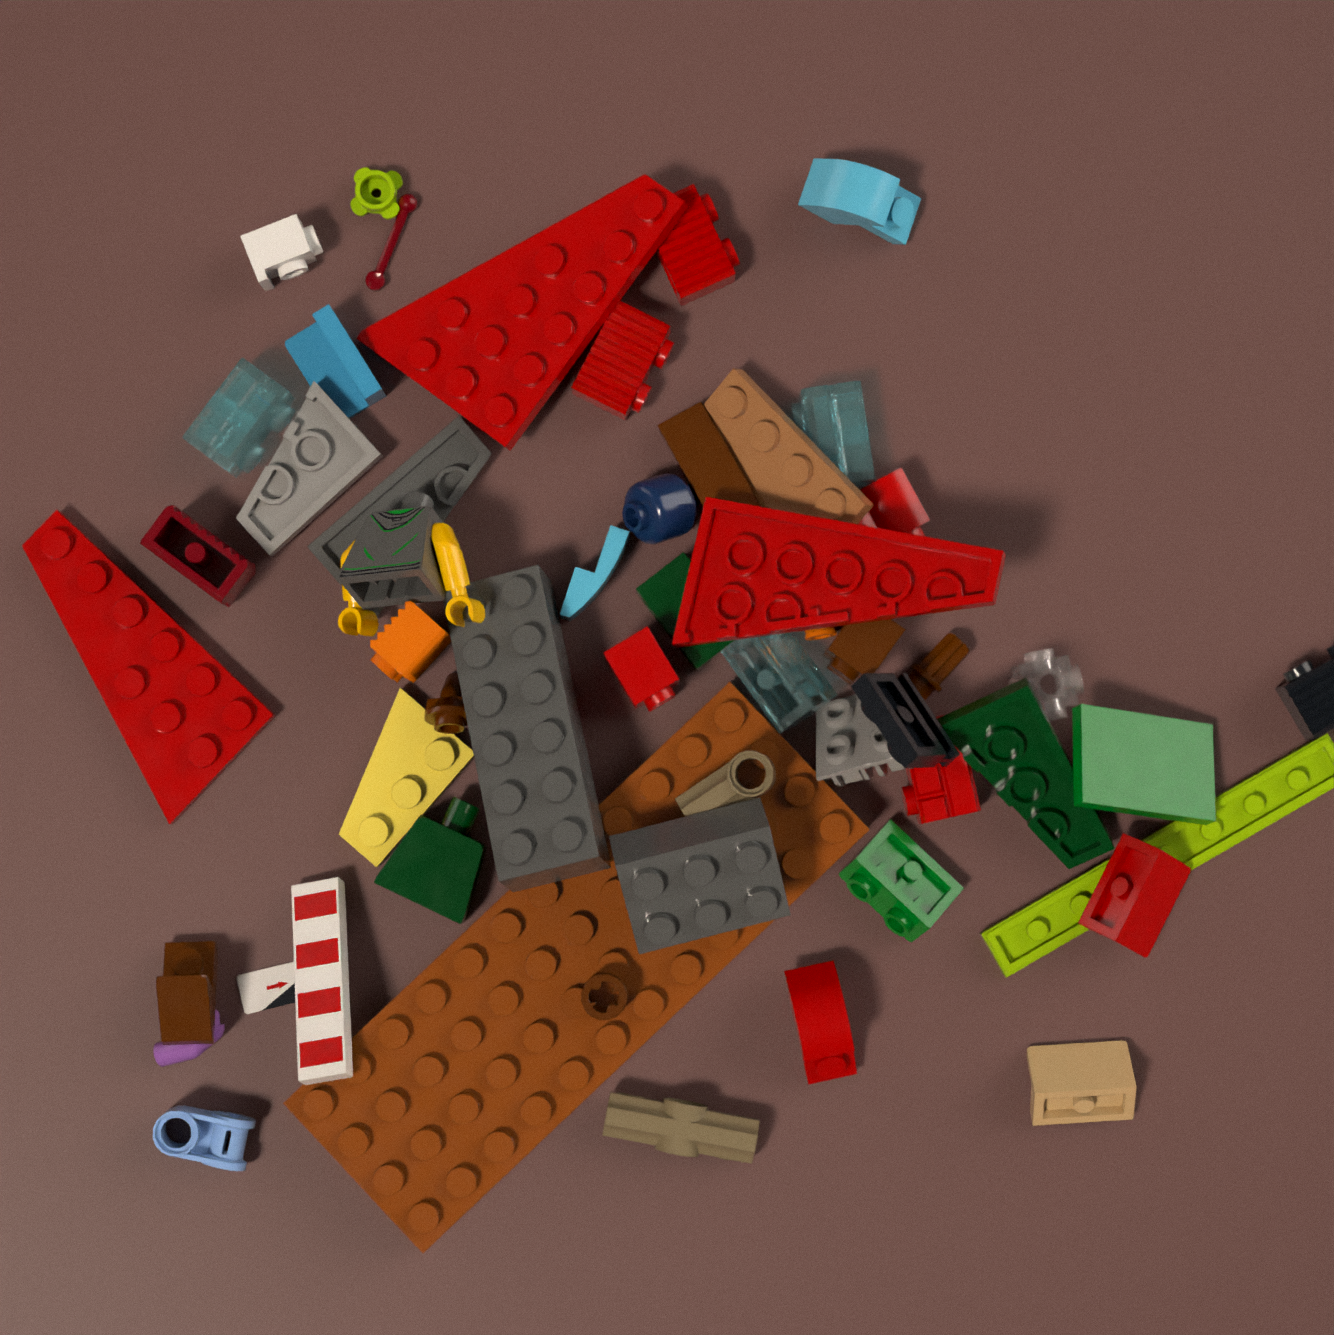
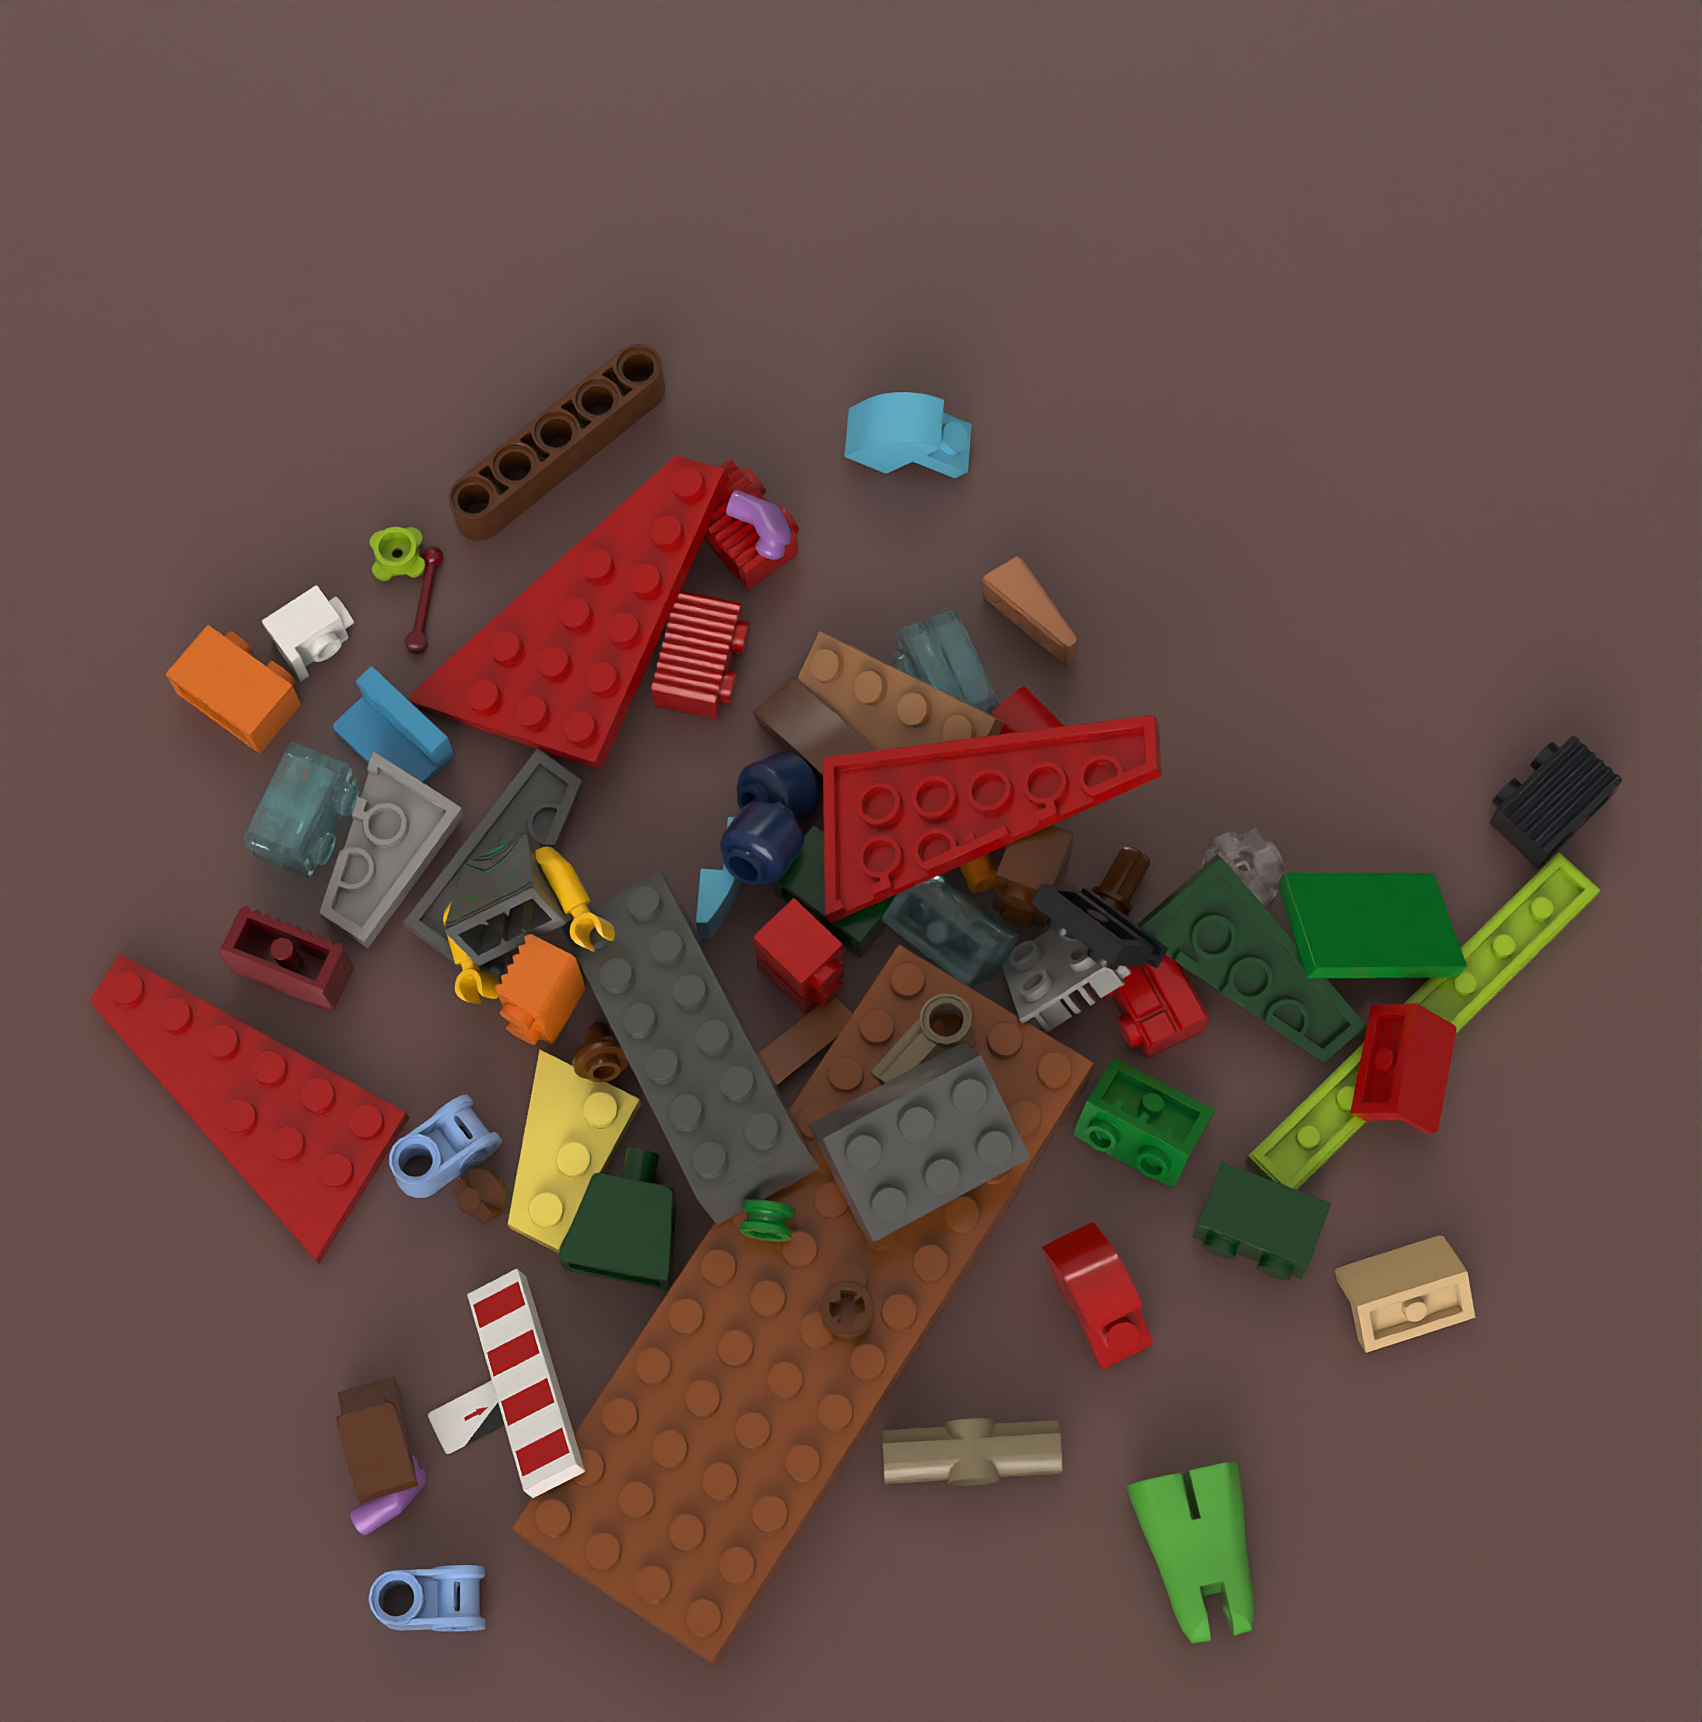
camera: 10 degrees left, 15 degrees down
(204, 288) = (235, 687): none -> orange brick
(301, 753) = (445, 1145): none -> light blue piece
(320, 803) = (480, 1193): none -> reddish brown plate
(555, 905) = (767, 1220): none -> green bush
(557, 102) = (551, 465): none -> reddish brown beam
(629, 735) = (805, 1039): none -> nougat sticker
(633, 562) = (761, 843): none -> dark blue head
(712, 258) = (766, 518): none -> medium lavender arm
(848, 1248) = (1199, 1544): none -> bright green piece
(923, 384) = (1025, 603): none -> nougat slope
(976, 995) = (1261, 1222): none -> dark green brick

